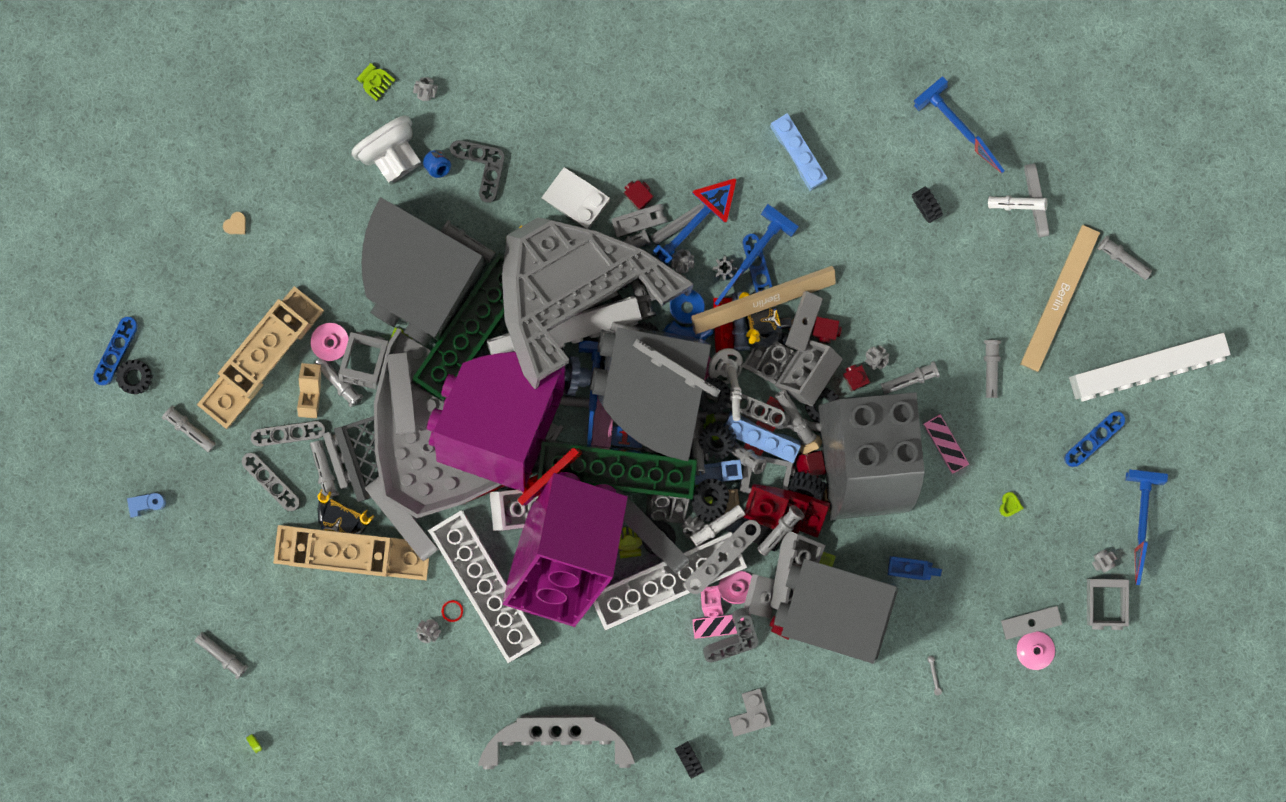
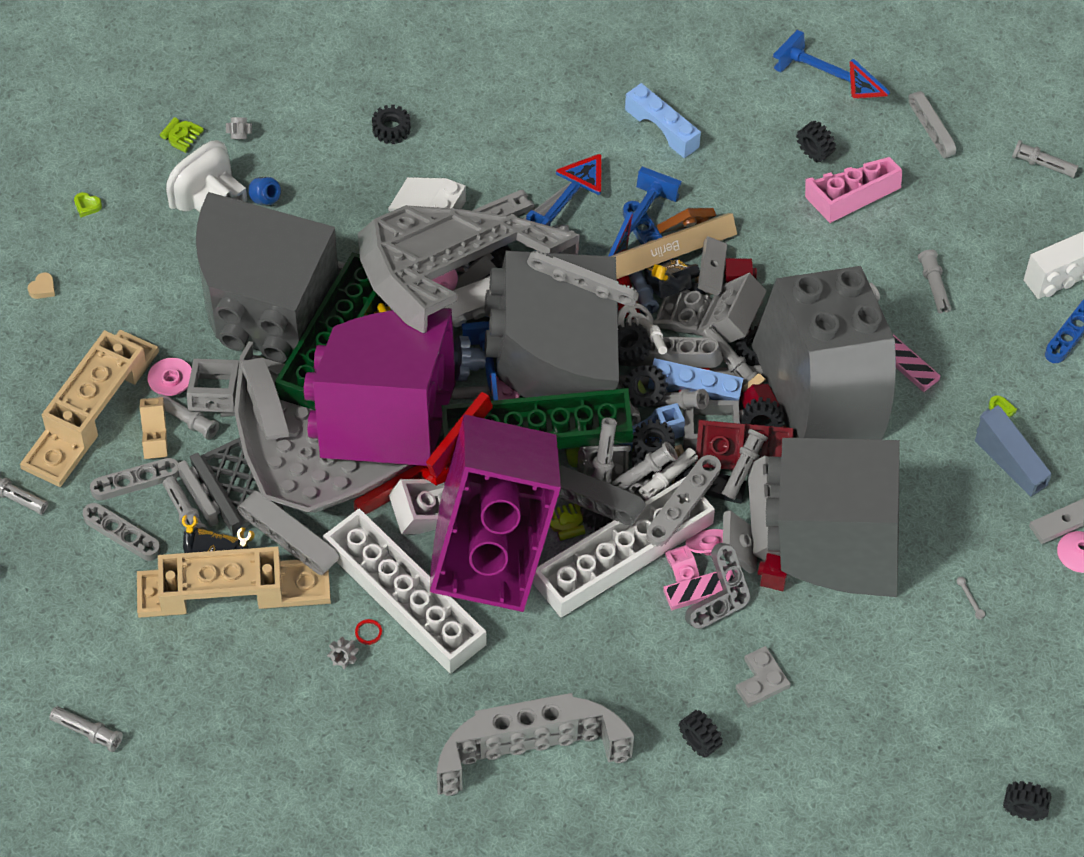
camera: 15 degrees left, 30 degrees down
(253, 742) = (142, 819): lime tile -> none
(283, 143) = (87, 204): none -> lime tile
(489, 165) = (323, 186): dark grey beam -> none
(559, 119) = (391, 134): none -> black tyre
(638, 194) = (496, 184): dark red brick -> none
(665, 511) = (603, 462): none -> light grey pin
(705, 521) = (652, 462): none -> light grey pin
(720, 272) = (607, 235): light grey gear -> none
(795, 268) = (686, 219): none -> dark orange wing
(912, 568) = (919, 488): blue hinge -> none
(946, 260) = (853, 189): none -> bright pink wedge
(1005, 554) = (1011, 451): none -> sand blue slope
(1017, 203) = (912, 125): white pin -> none
(1059, 298) = (987, 209): tan tile -> none

